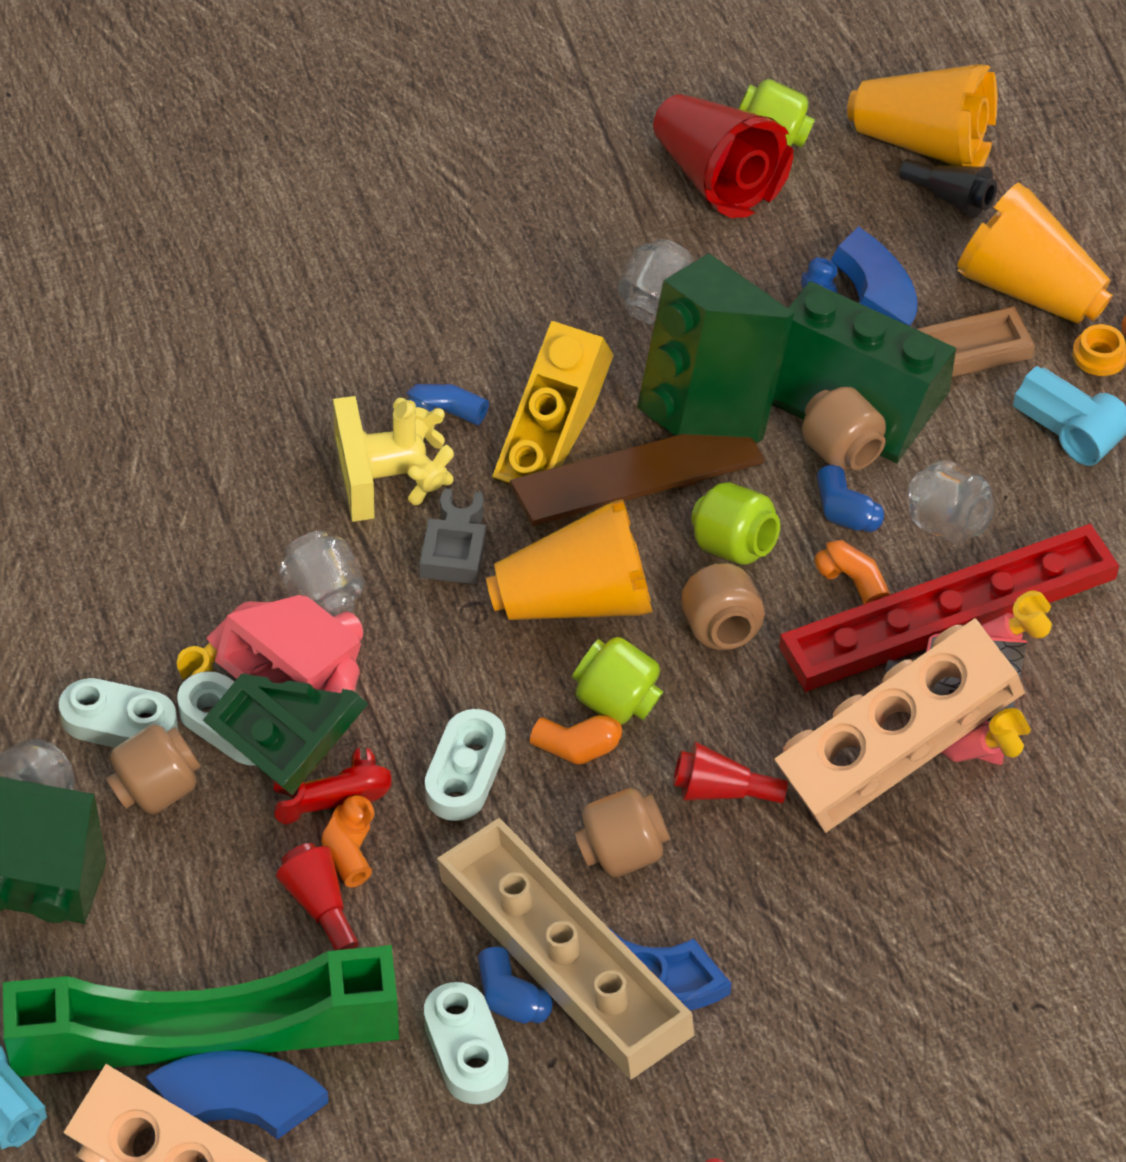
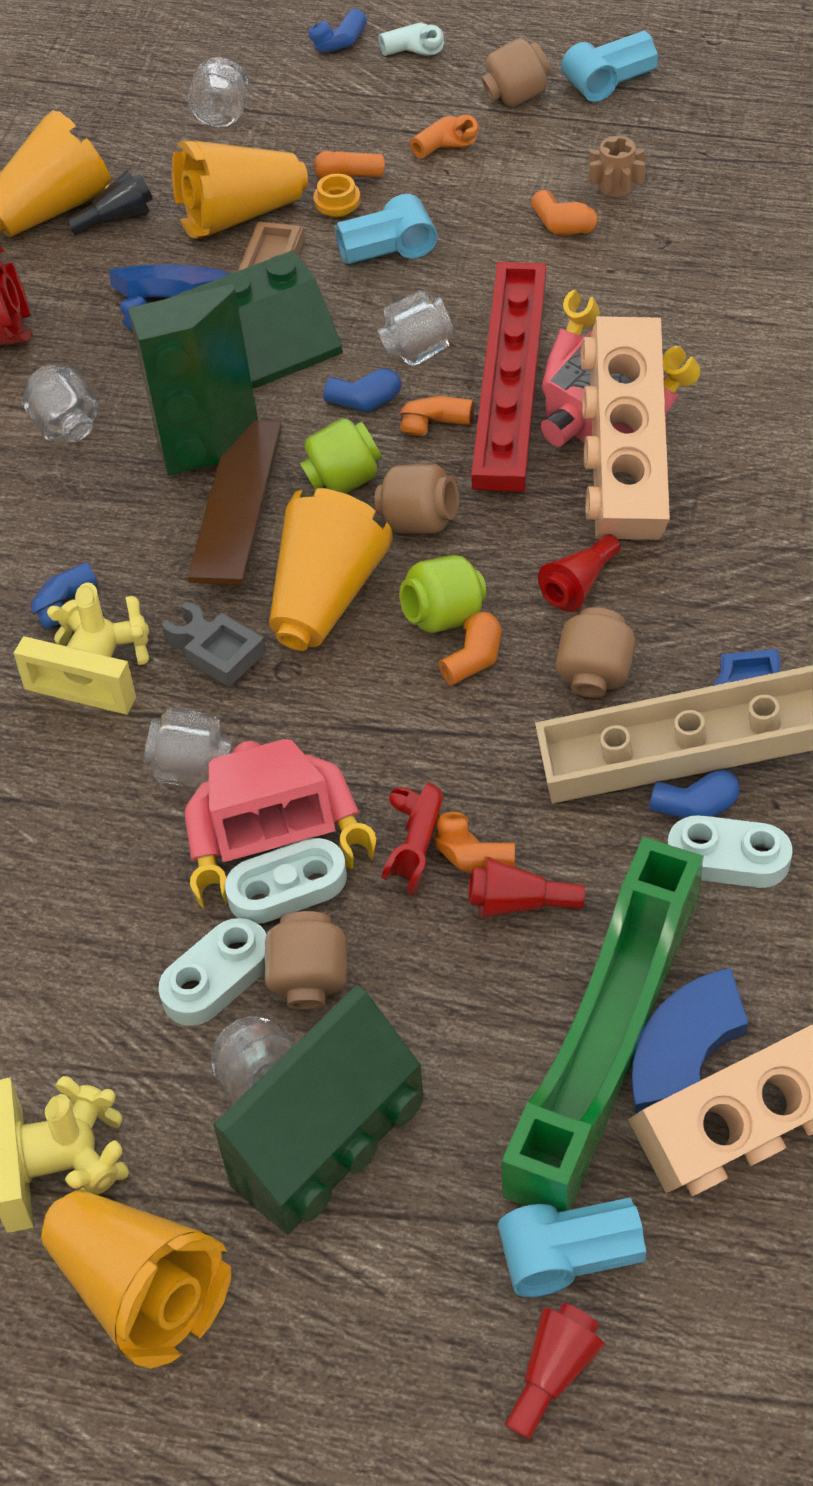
camera: 55 degrees left, 0 degrees up
(283, 724) = (349, 827): dark green wing -> none
(462, 768) = (457, 734): light aqua plate -> none
(555, 402) = (130, 518): yellow slope -> none
(844, 428) = (302, 354): medium nougat head -> none

